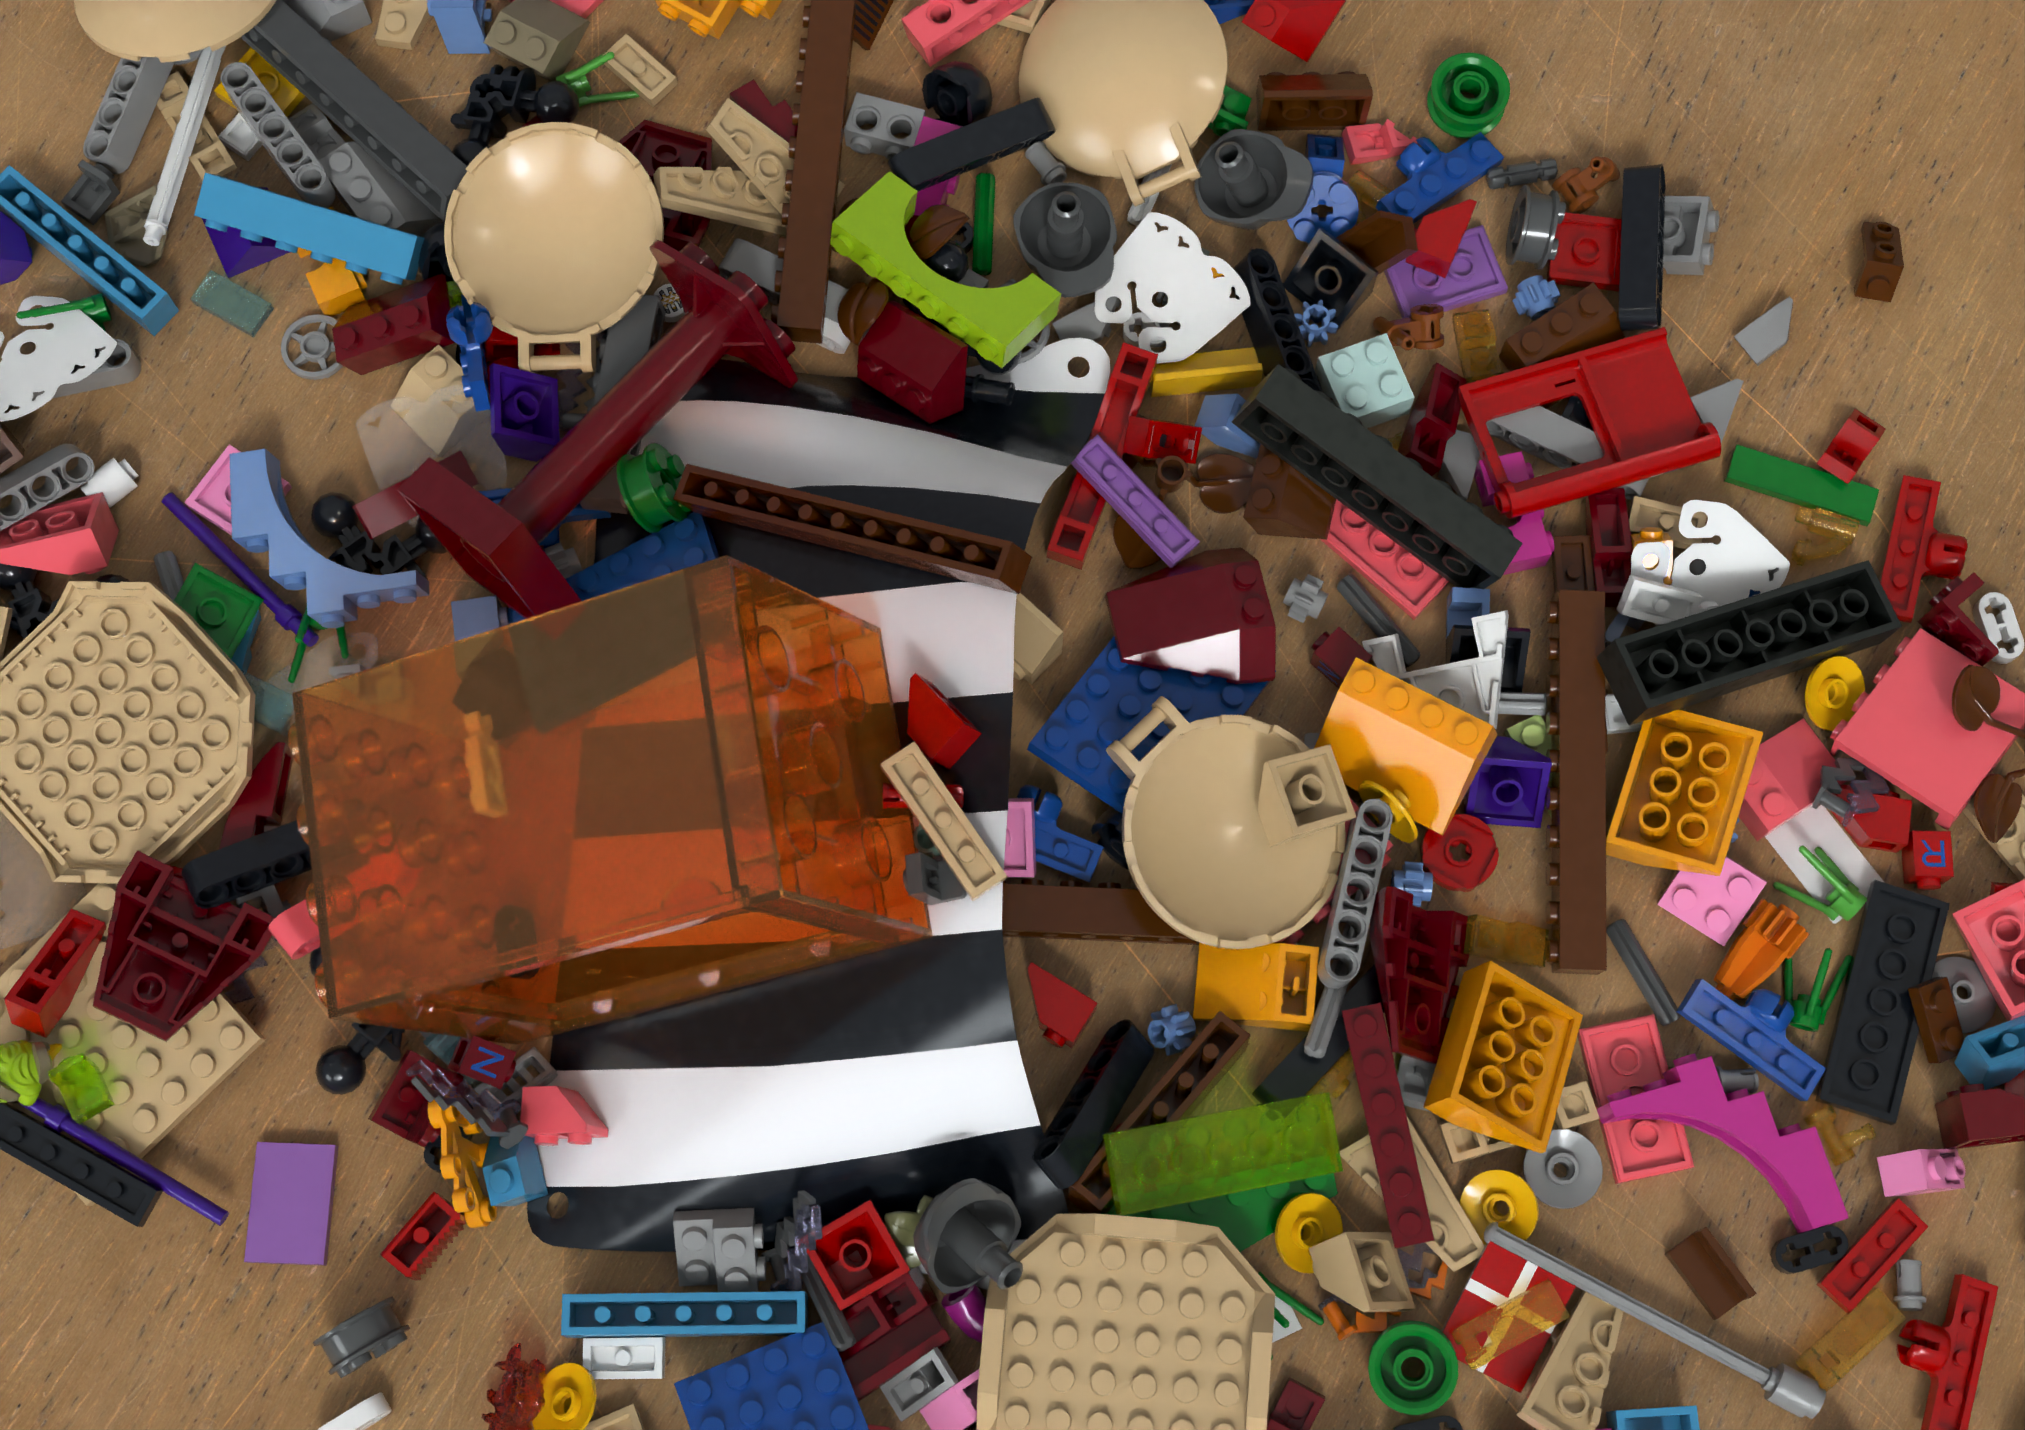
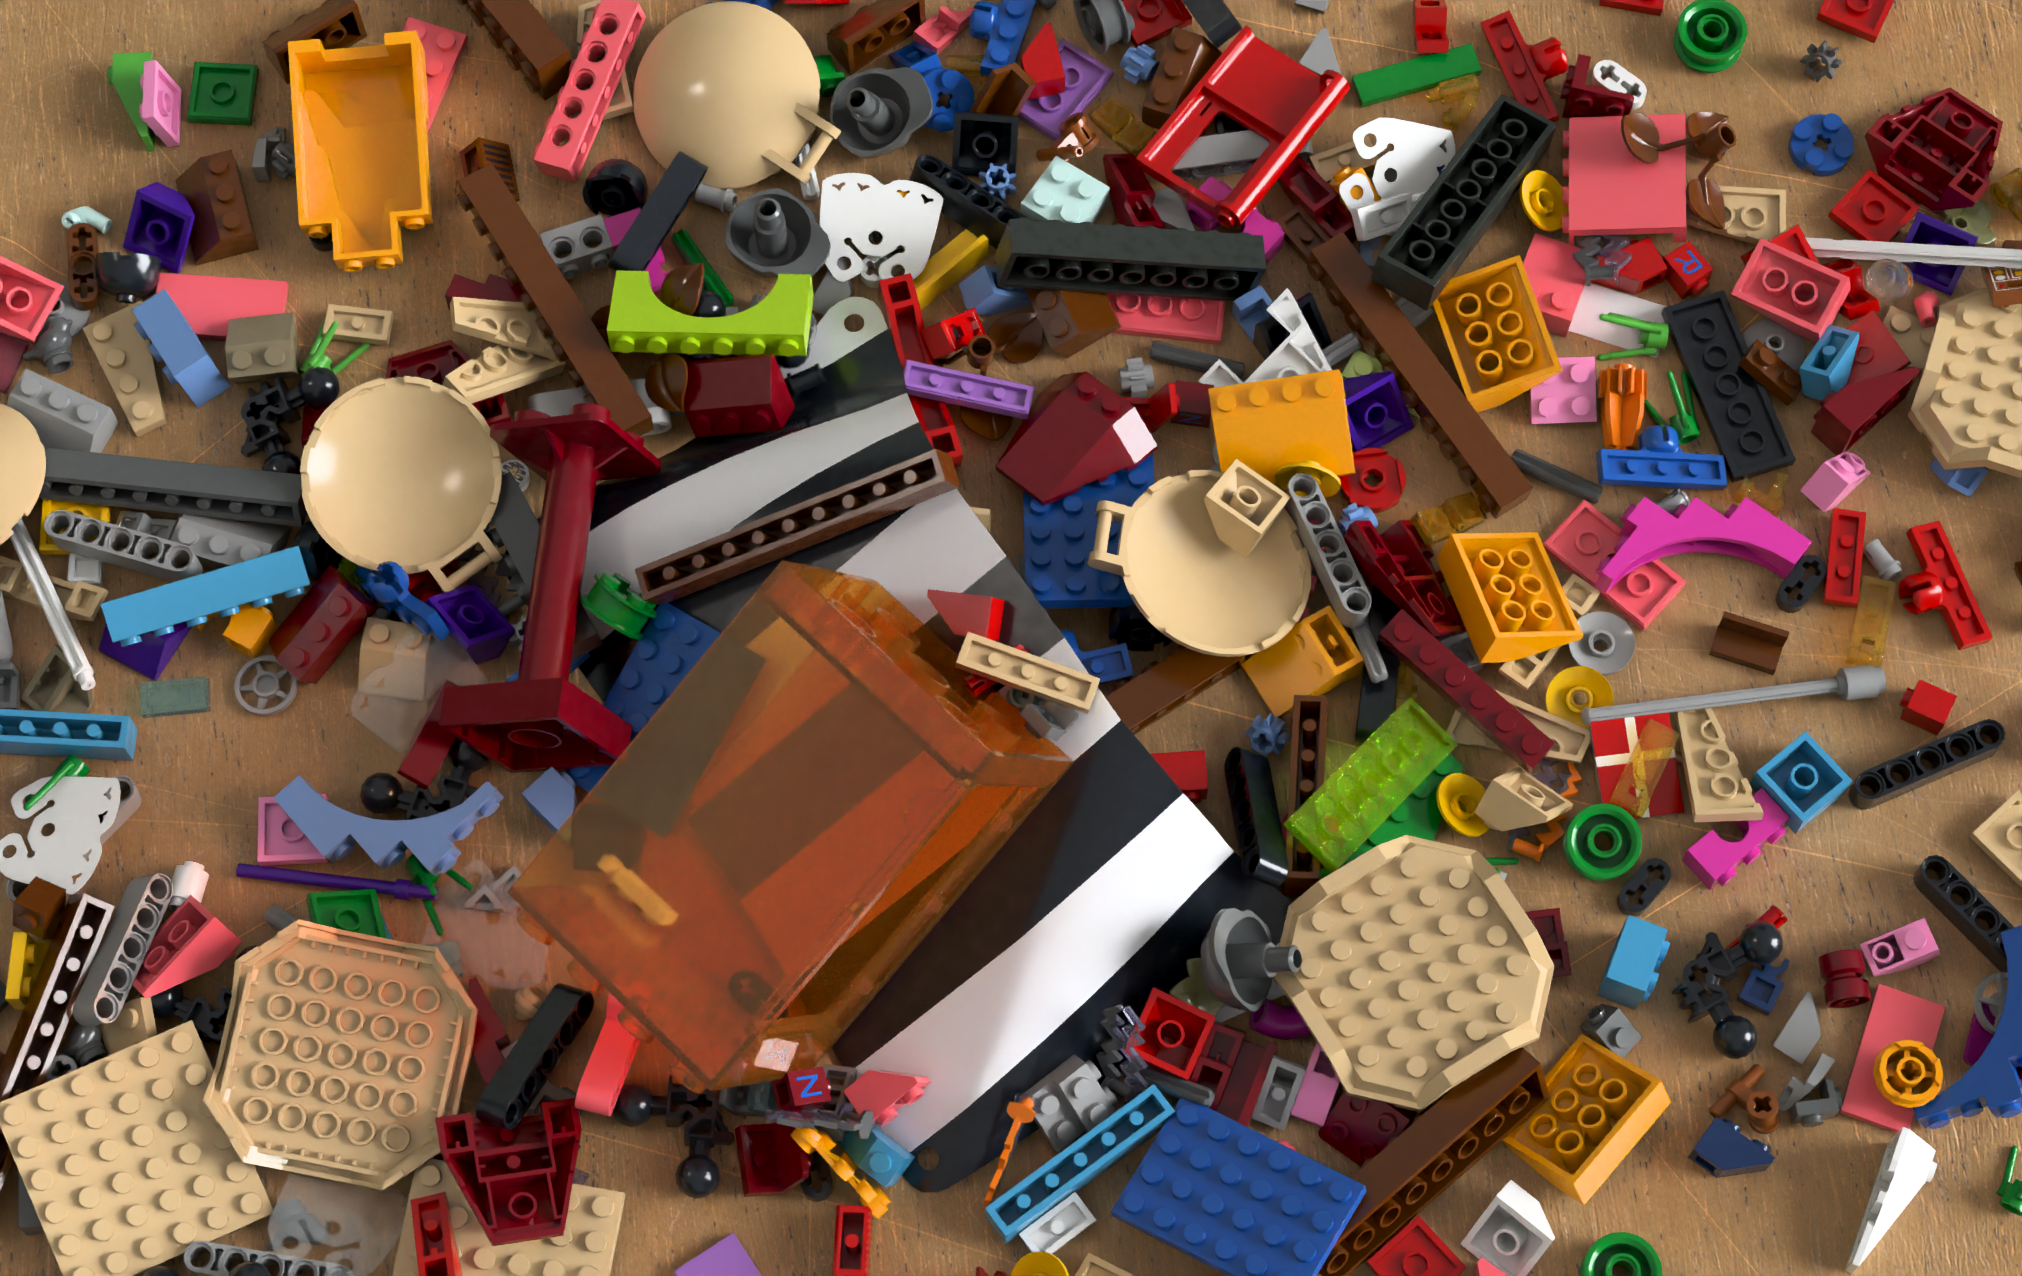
camera: 35 degrees left, 5 degrees down
(651, 1235) = (1022, 1111): none -> orange piece
(1297, 641) = (1158, 408): none -> red bracket

